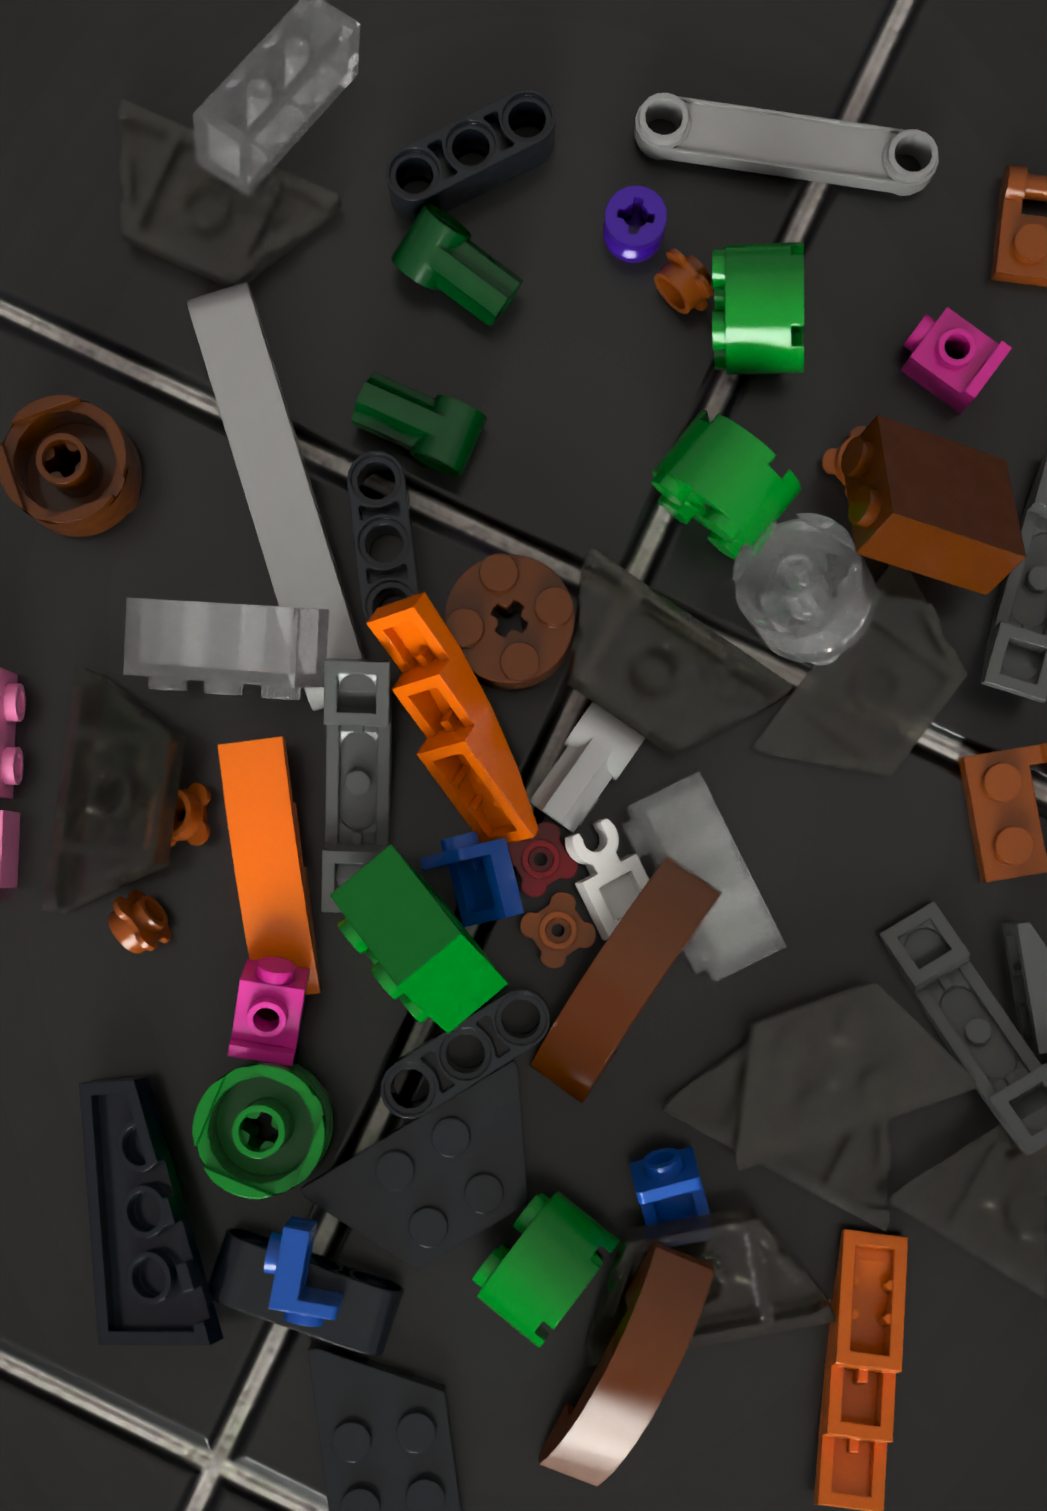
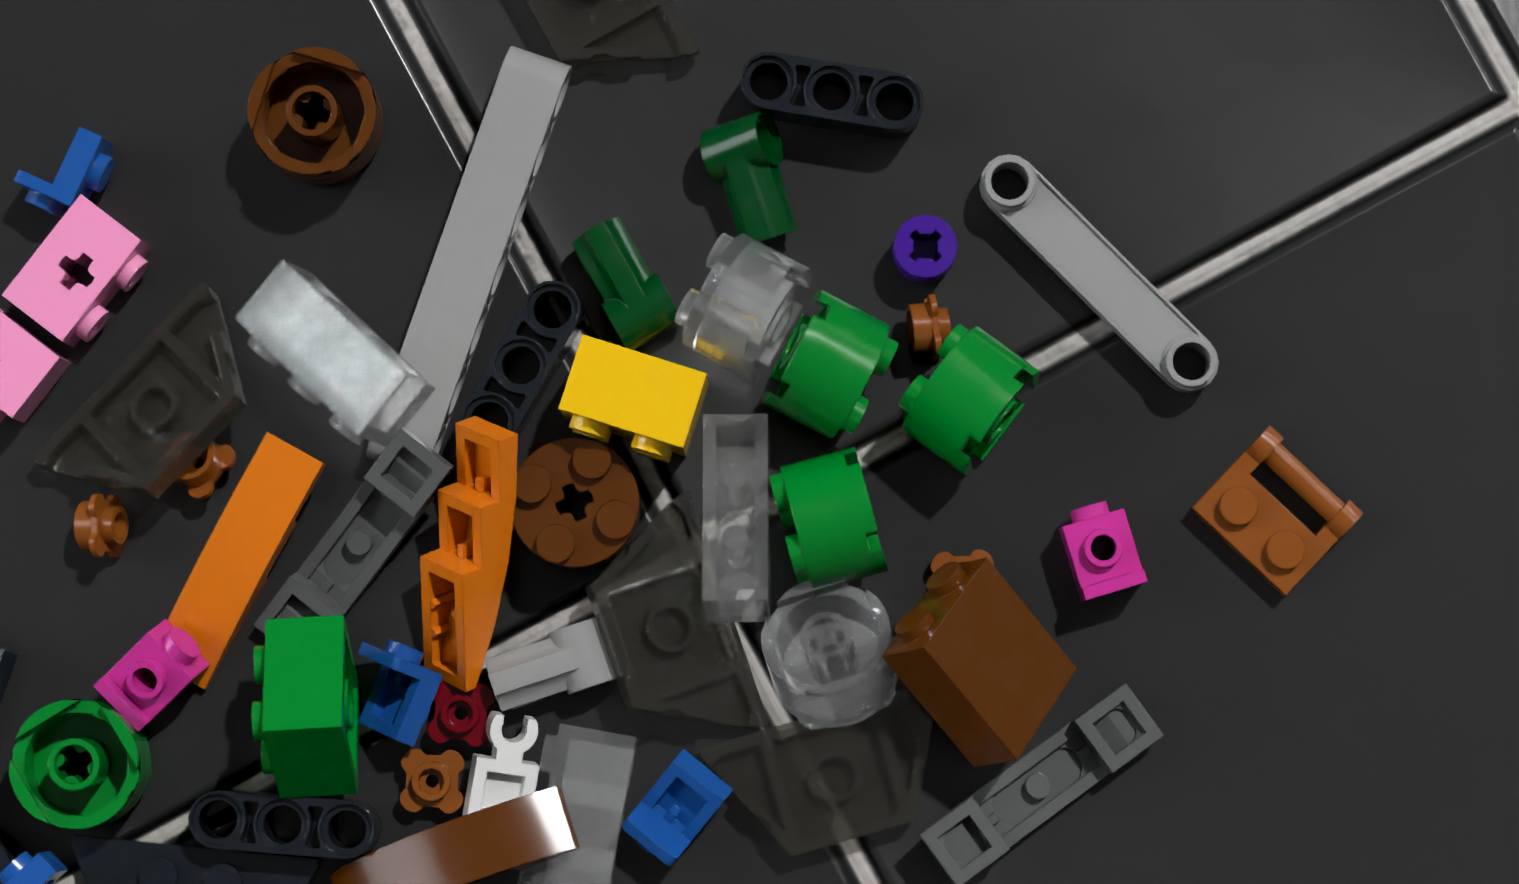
camera: 35 degrees right, 0 degrees up
(496, 499) = (633, 398): none -> yellow brick
(527, 365) = (743, 305): none -> clear brick
(632, 363) = (829, 366): none -> green brick
(649, 535) = (736, 518): none -> clear brick
(770, 805) = (676, 808): none -> blue bracket

